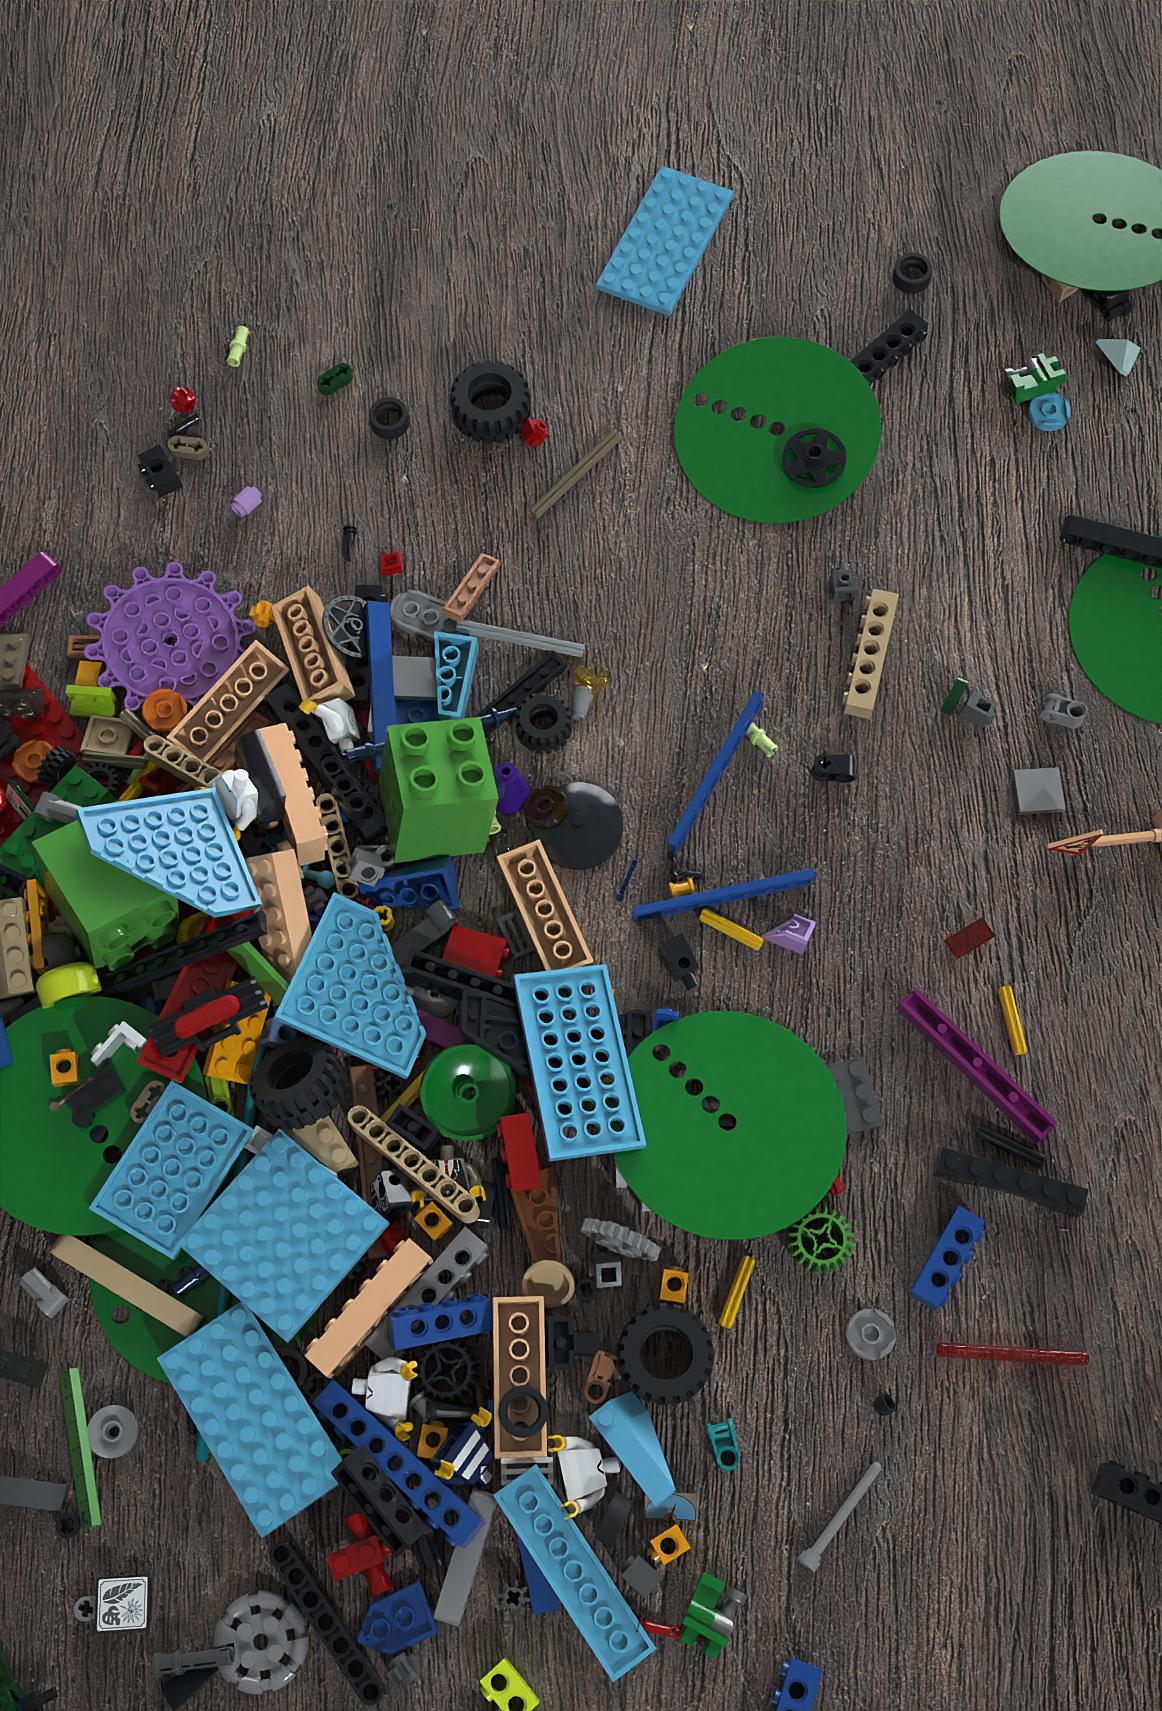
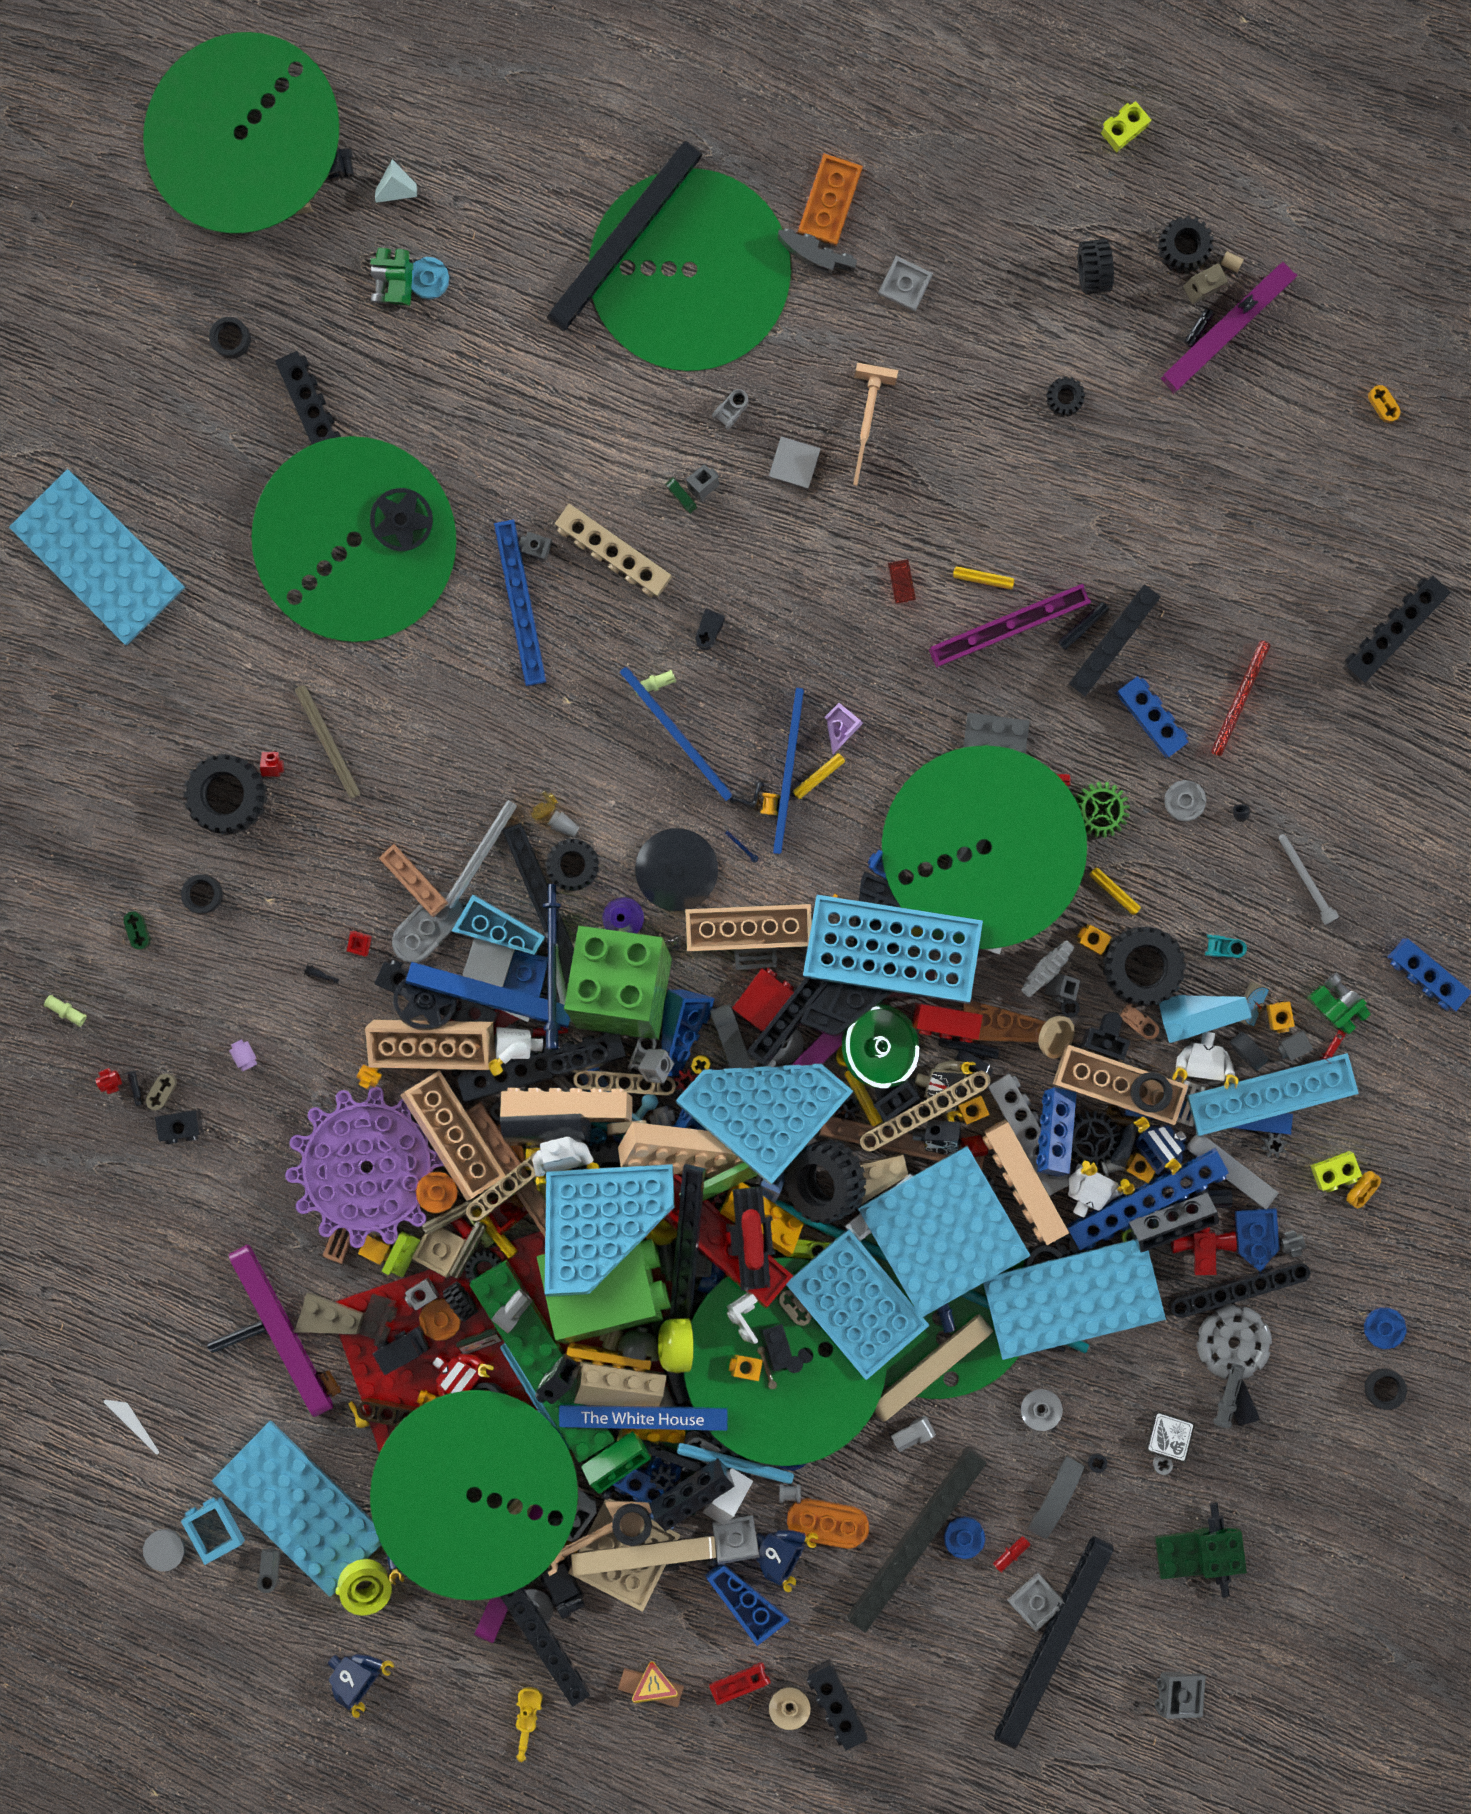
camera: 70 degrees left, 20 degrees up
(63, 737) = (429, 1289): none -> light grey brick
(80, 1449) = (1044, 1438): bright green tile -> none
(545, 806) = (652, 892): dark brown tile -> none
(678, 951) = (826, 831): black torso -> none
(780, 592) = (520, 603): none -> blue tile

